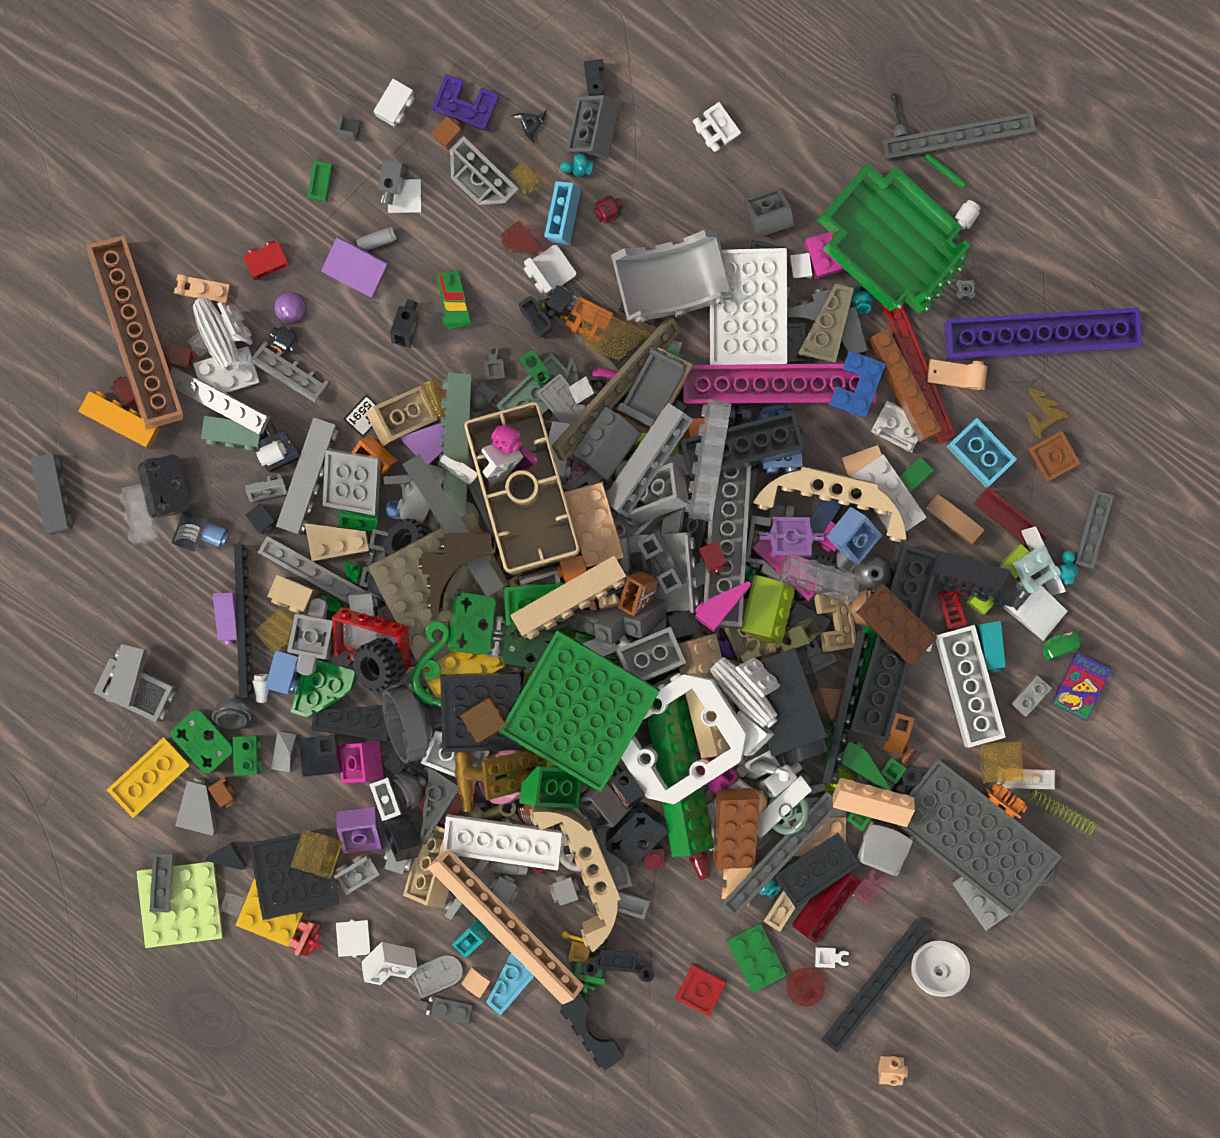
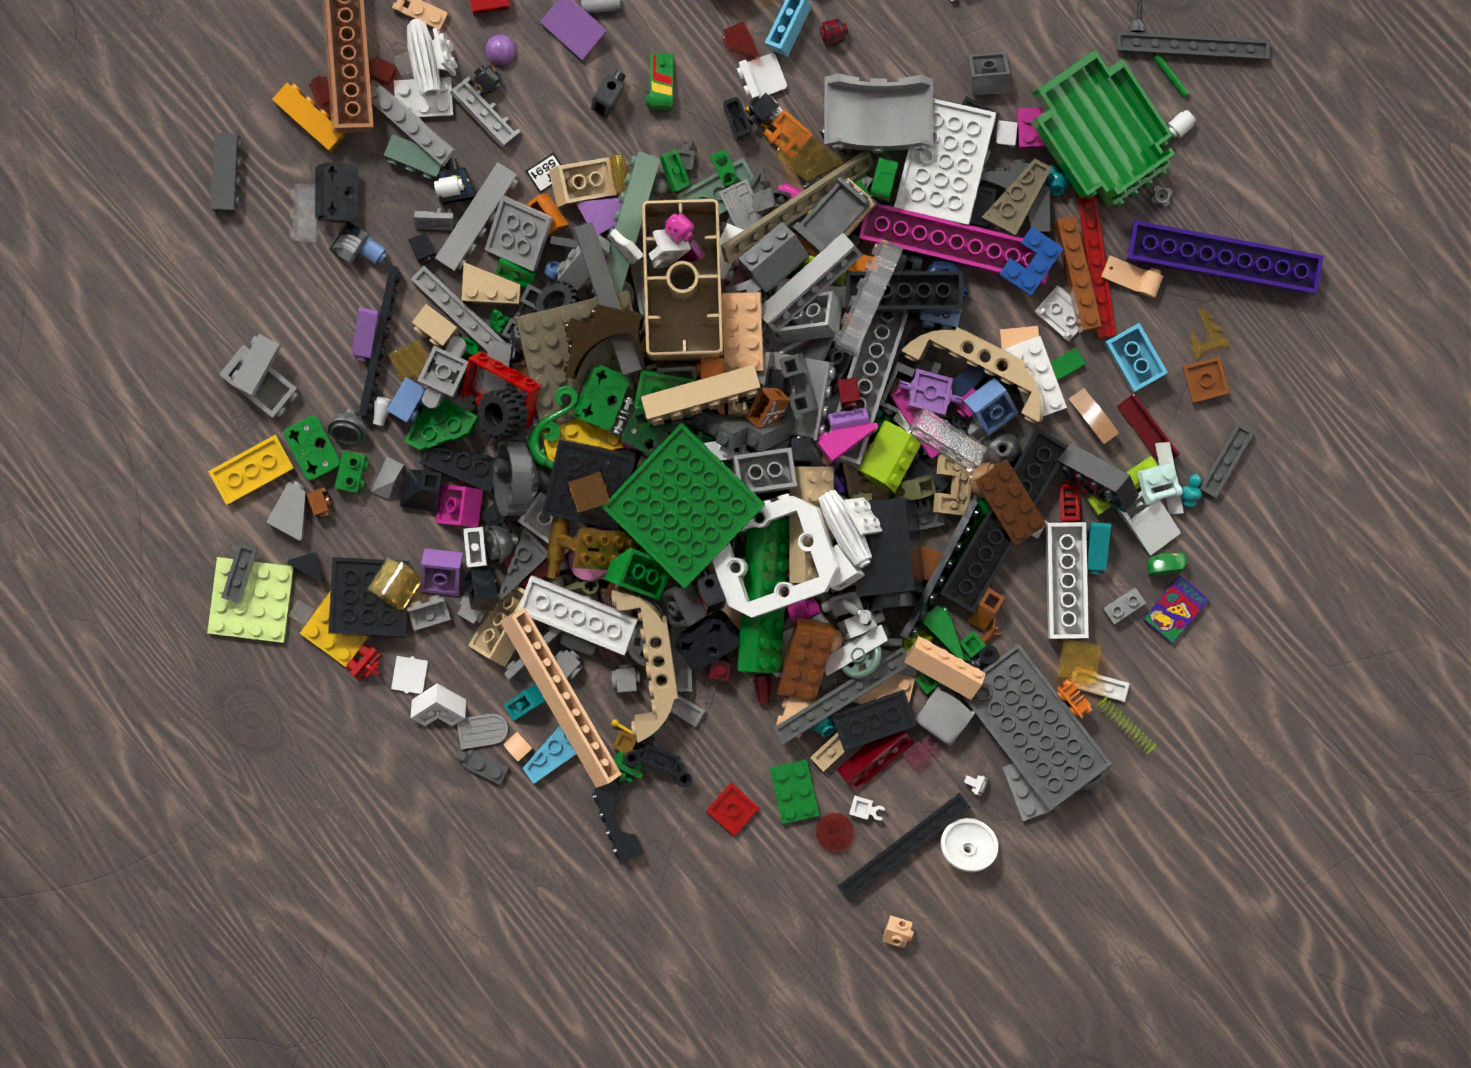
camera: 15 degrees right, 0 degrees up
(488, 382) = (674, 170): none -> green plate
(694, 341) = (884, 181): none -> green axle
(719, 584) = (848, 419): none -> medium lavender plate
(933, 906) = (978, 784): none -> white brick

